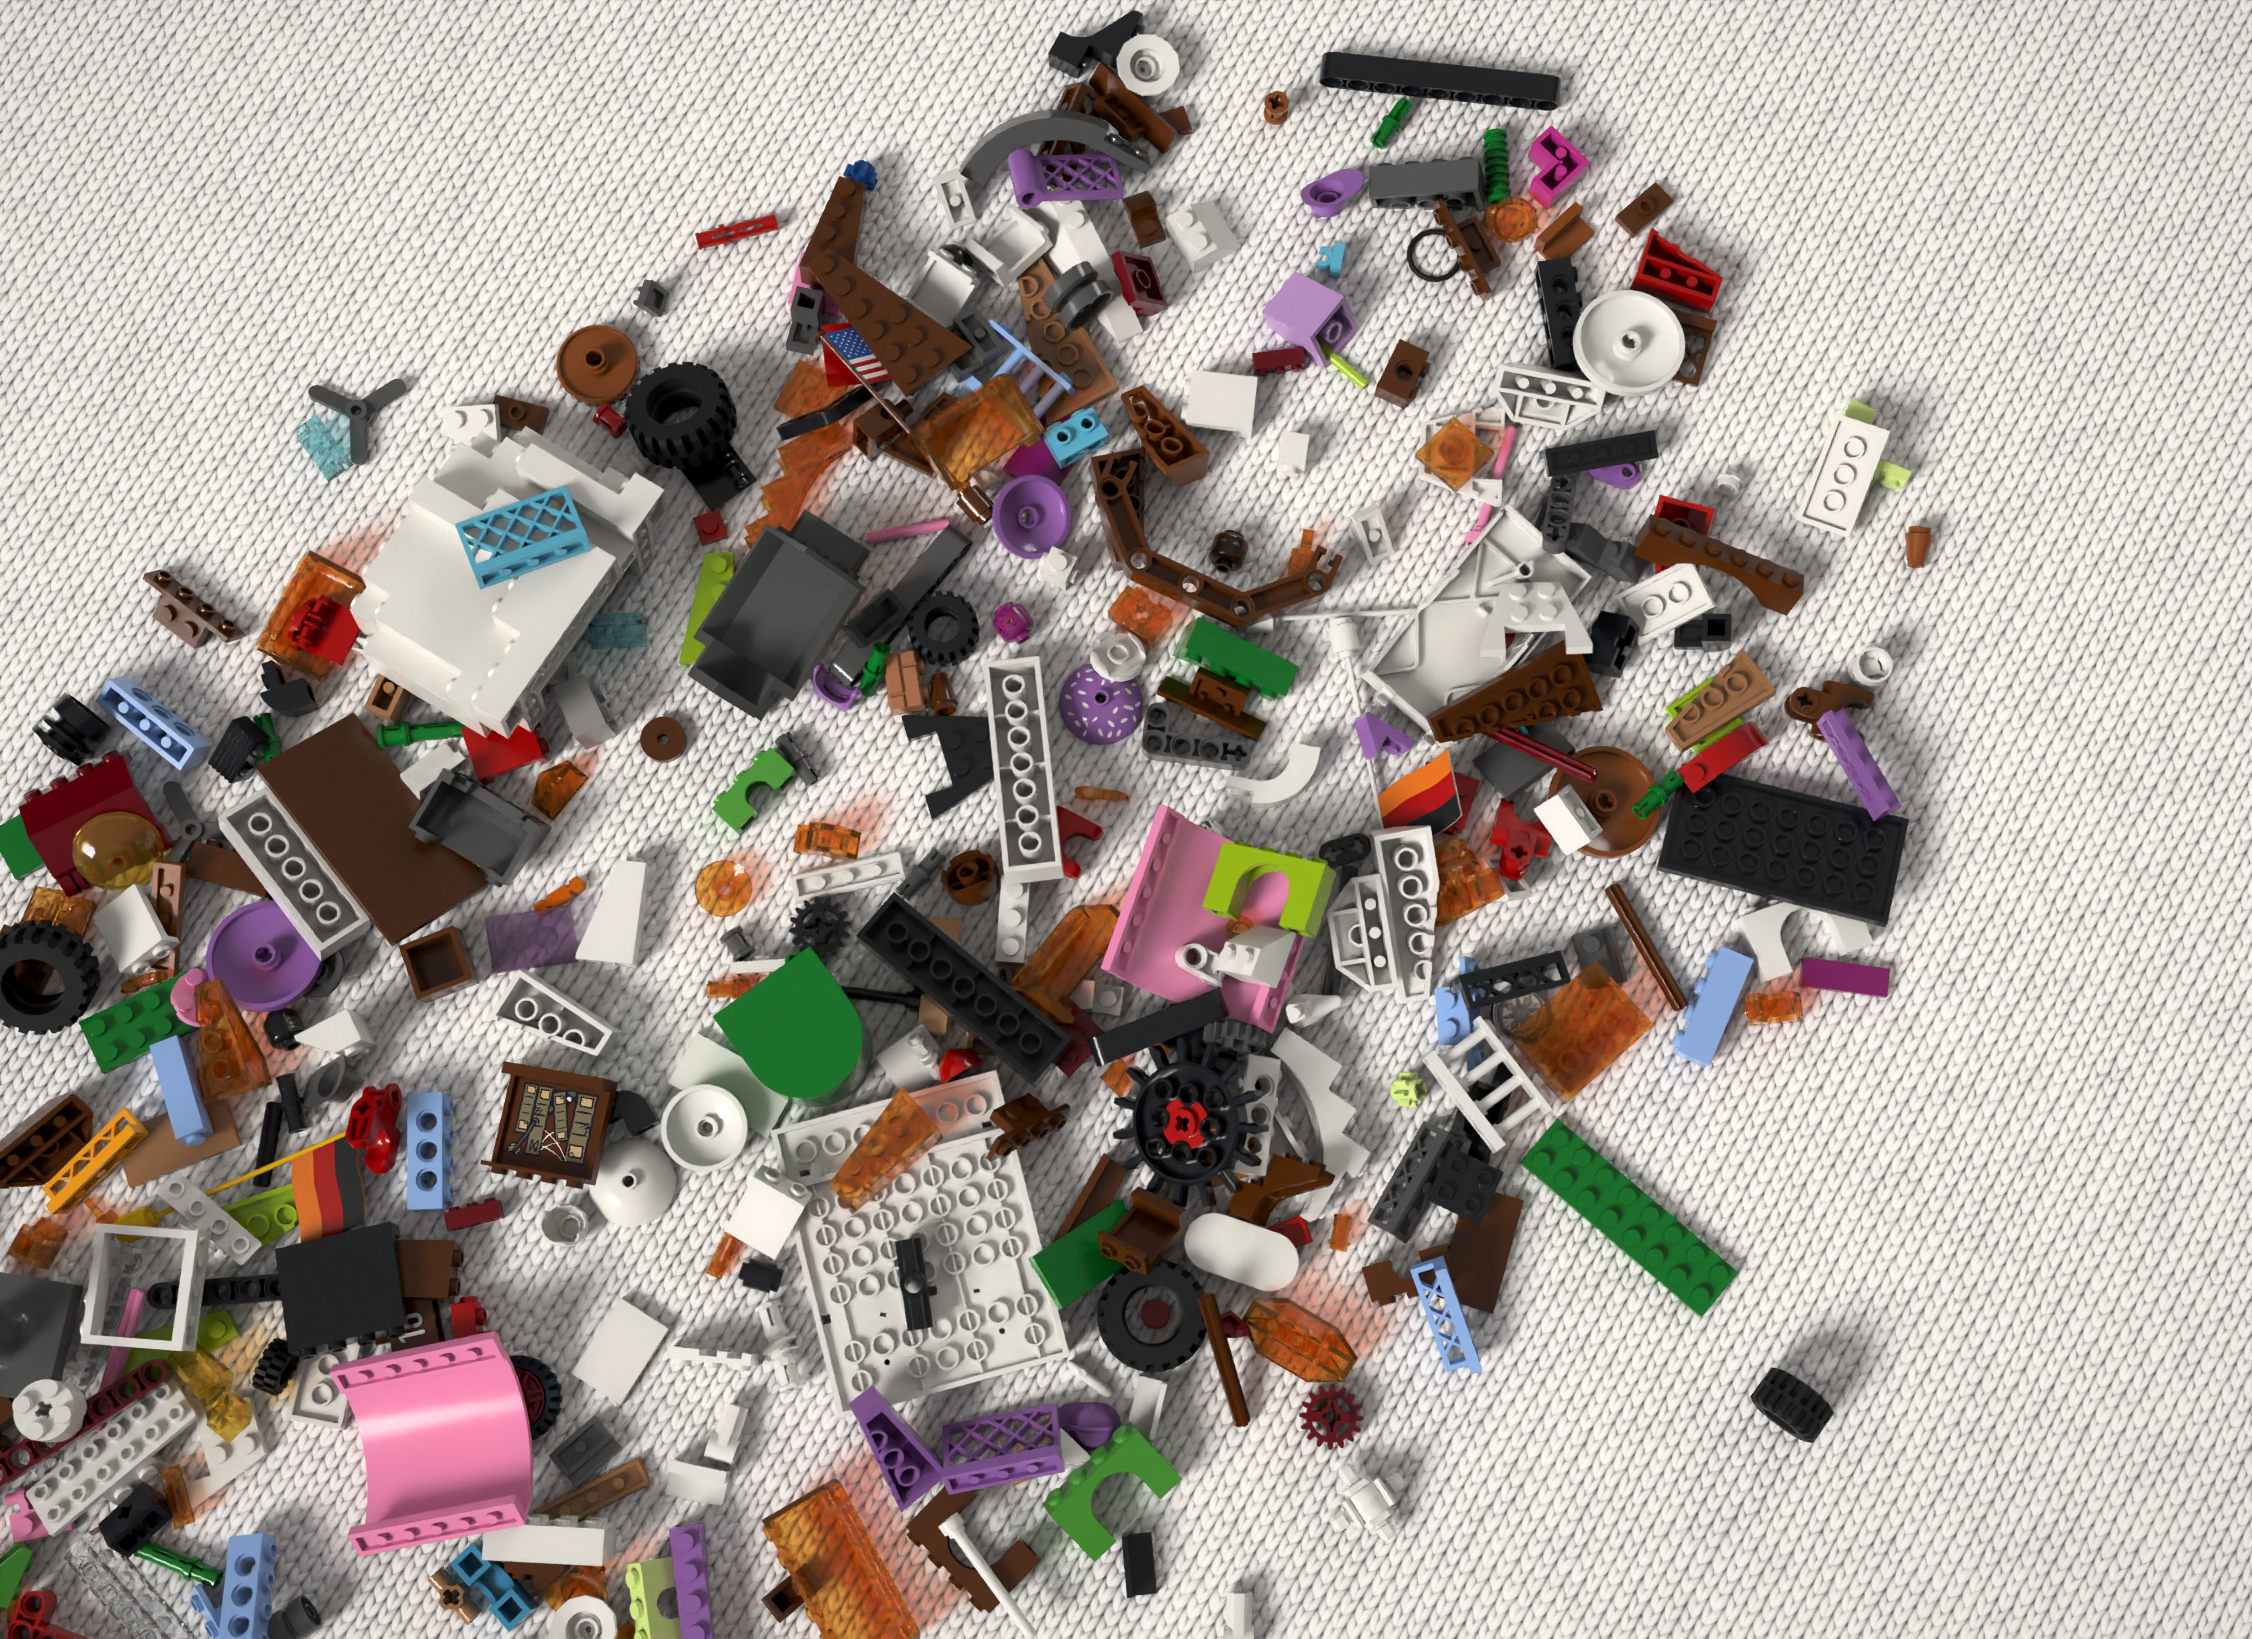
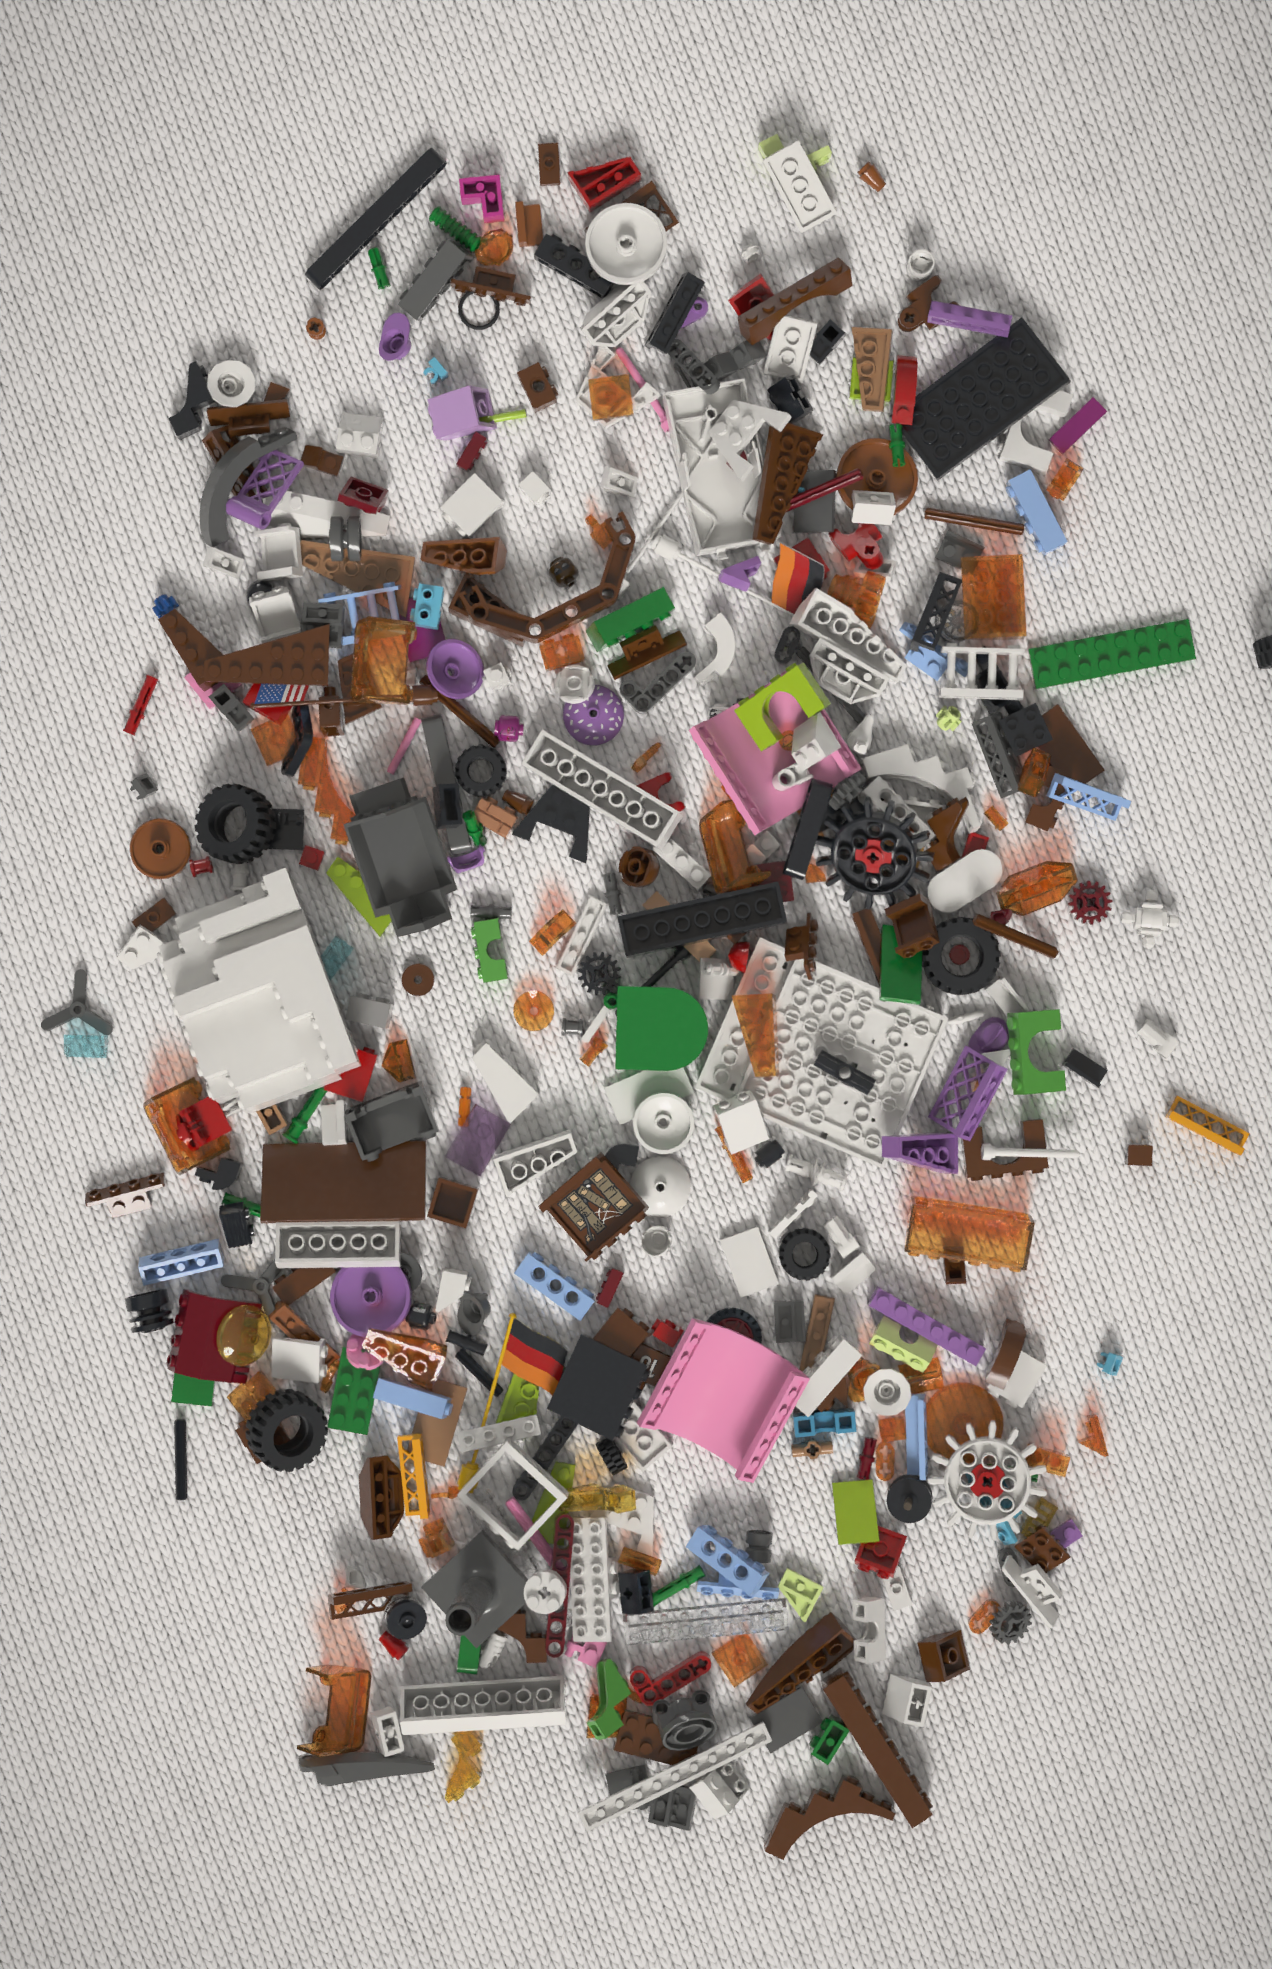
camera: 55 degrees left, 10 degrees up
(374, 1126) = (520, 1305): red piece -> none
(530, 554) = (271, 973): medium azure fence -> none
(650, 1411) = (812, 1270): none -> black tyre
(990, 573) = (463, 714): none -> reddish brown axle
(1425, 1233) = (1034, 772): none -> clear orange brick

